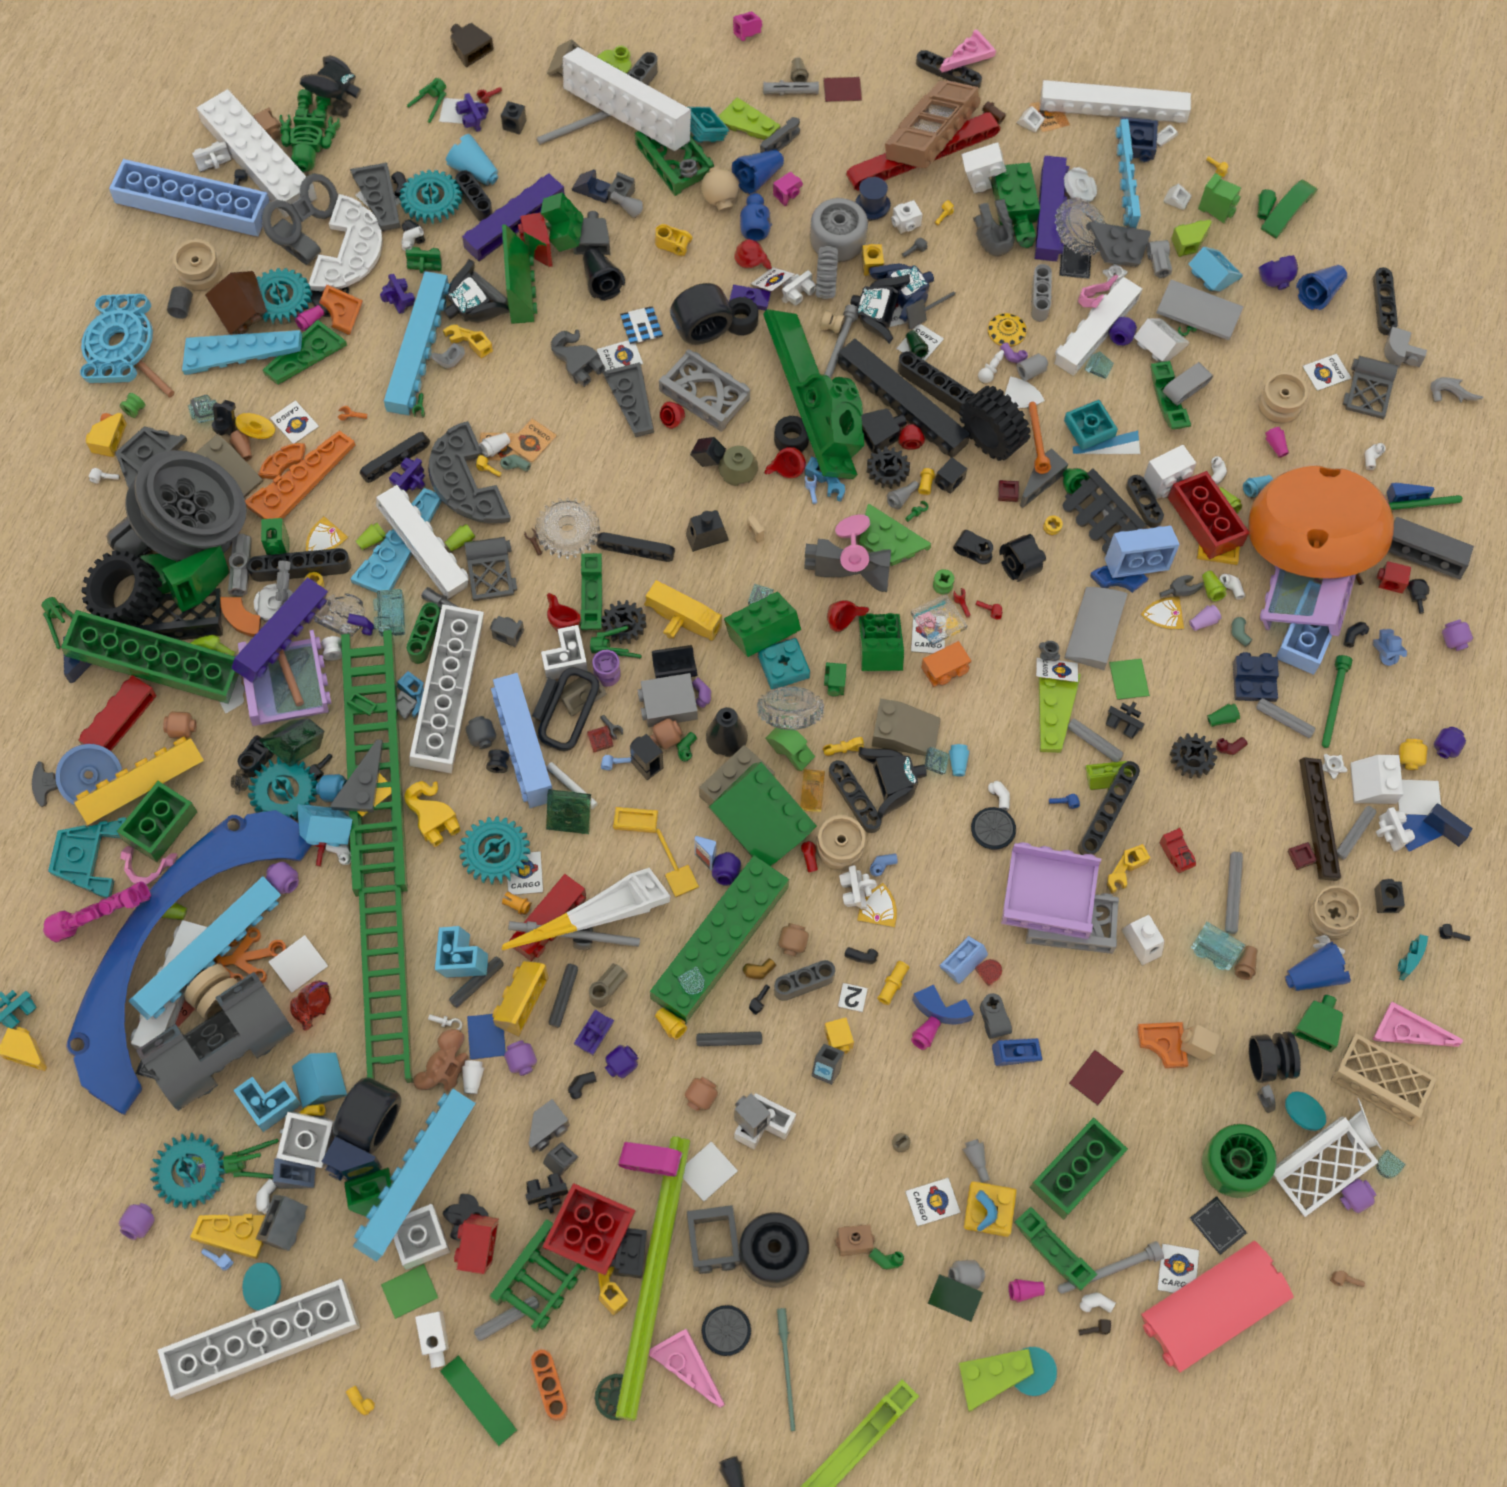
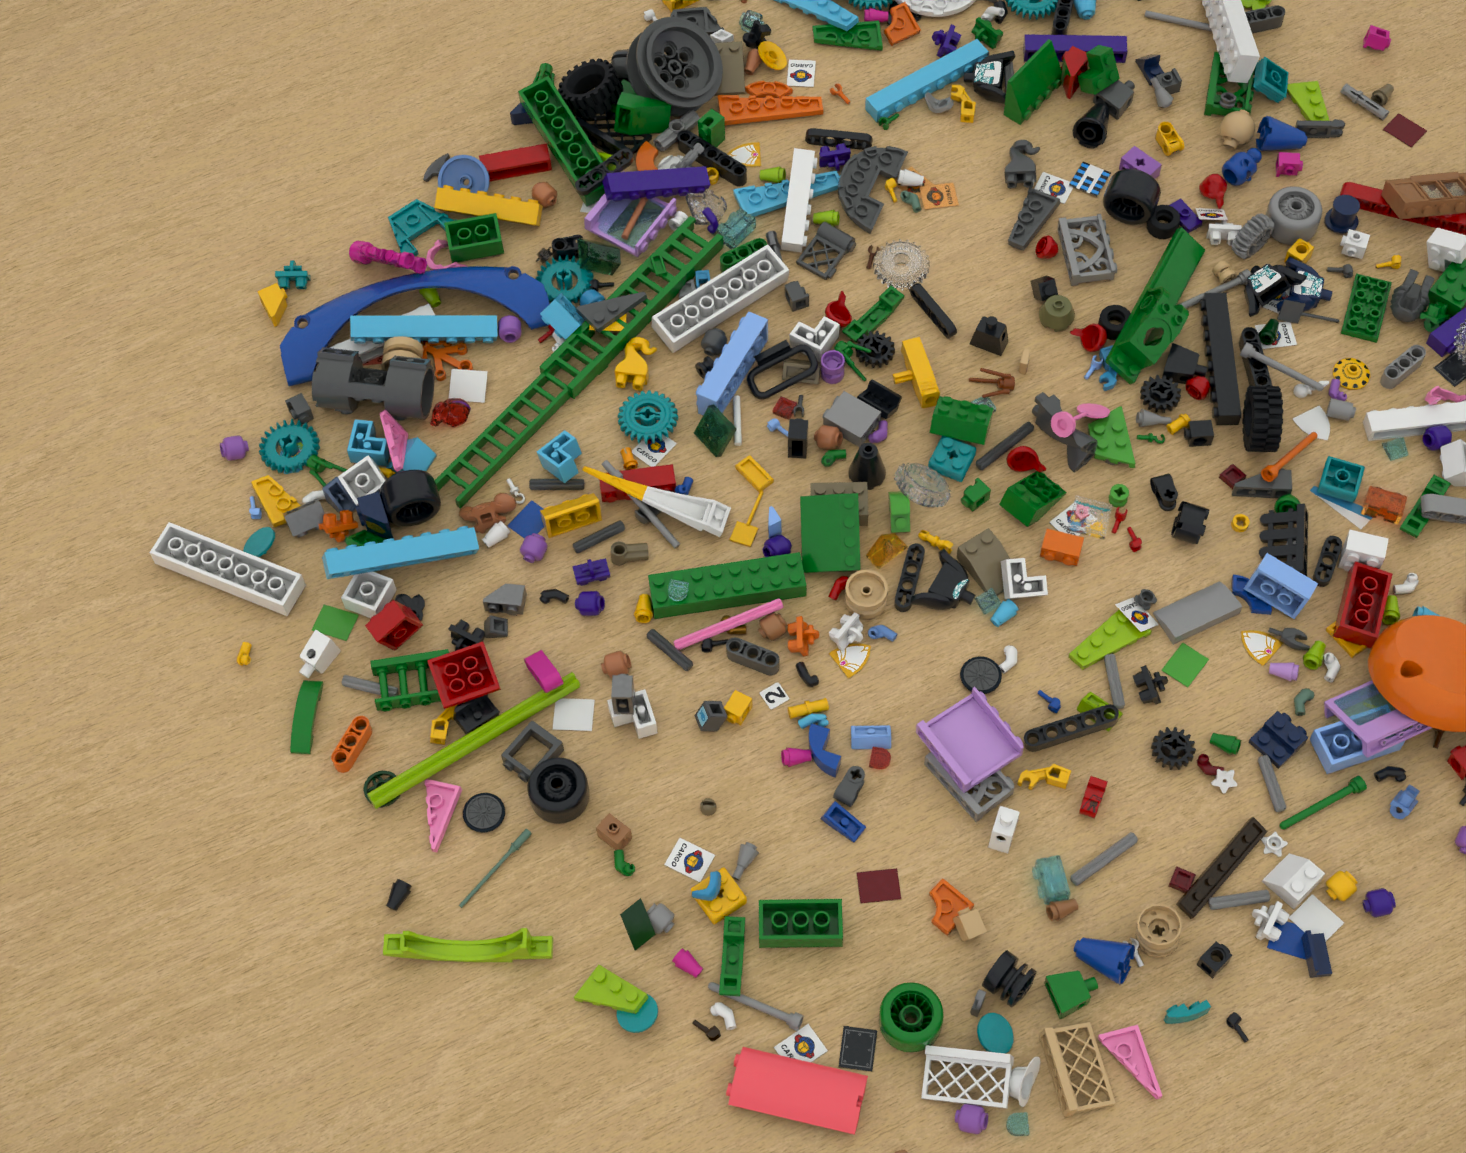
camera: 50 degrees right, 5 degrees down
(161, 1126) = (299, 408): none -> dark grey brick
(191, 443) = (722, 36): none -> white tile
(225, 658) = (602, 169): none -> black beam
(293, 1074) = (396, 439): none -> bright pink wing
(322, 1201) = (339, 528): none -> orange hips
(592, 887) = (685, 487): none -> blue arm
(672, 280) = (1141, 161): none -> medium lavender brick
(758, 561) = (1004, 382): none -> dark orange plant
(758, 971) = (728, 624): none -> bright pink axle
(812, 616) = (1004, 446): none -> dark grey axle
(830, 935) = (805, 636): none -> orange hips
(906, 988) = (806, 721): none -> medium azure arm
(924, 374) = (1249, 351): none -> light grey piece
(949, 724) = (1016, 582): none -> white brick
(964, 265) = (1366, 308): none -> green tile
(1141, 417) = (1384, 504): none -> clear orange brick
(1248, 746) = (1221, 775): none -> white plate

